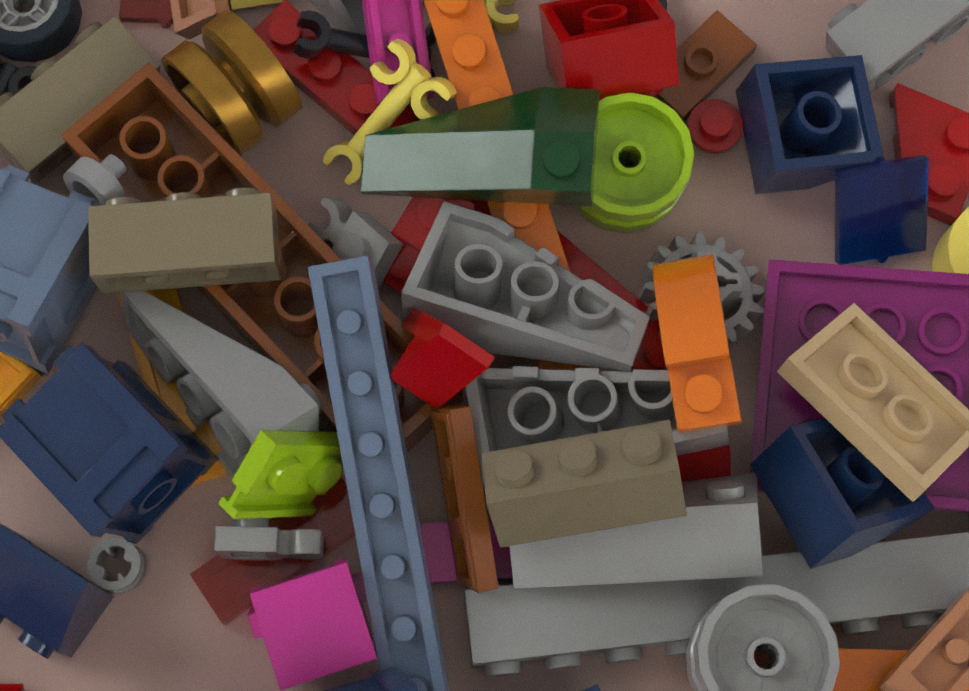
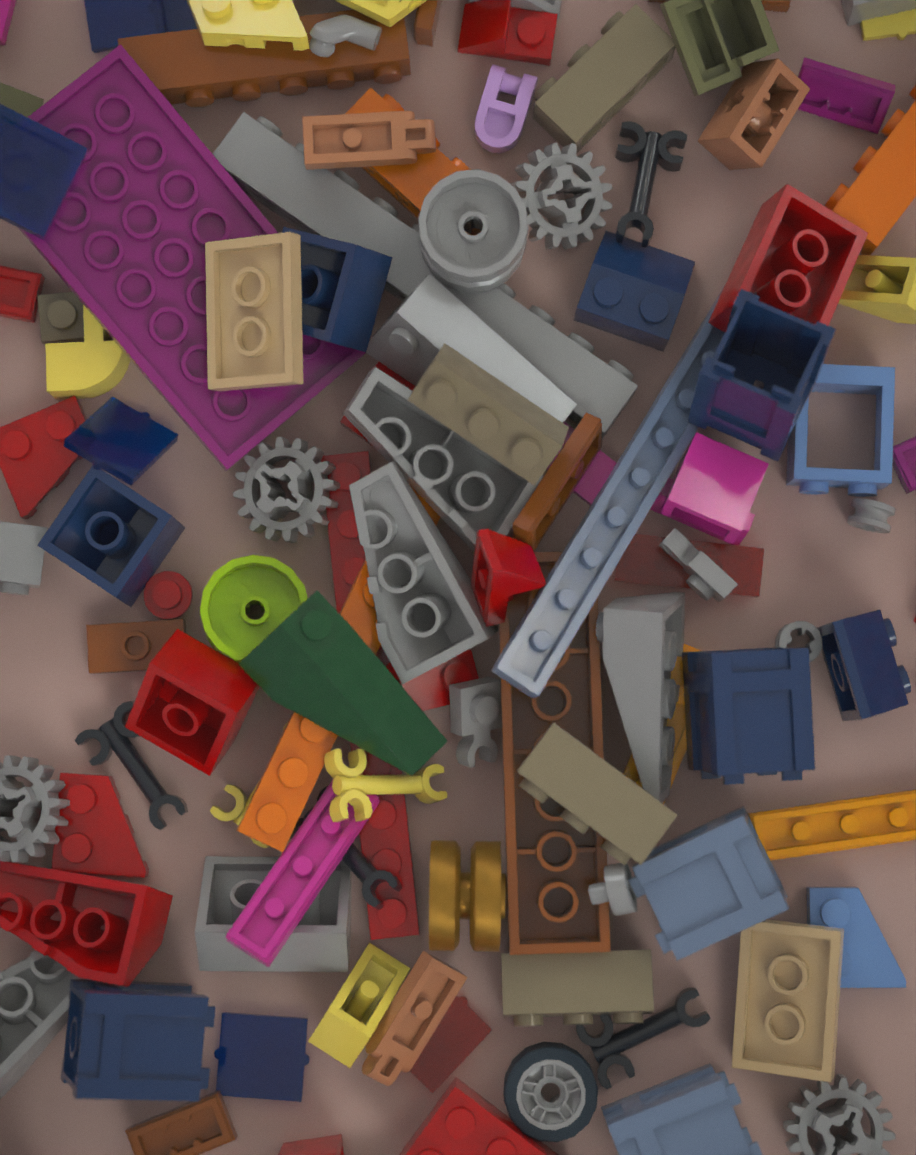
camera: 130 degrees left, 10 degrees up
(284, 474) = (657, 590): lime plate -> none
(695, 344) = (338, 443): orange arch -> none

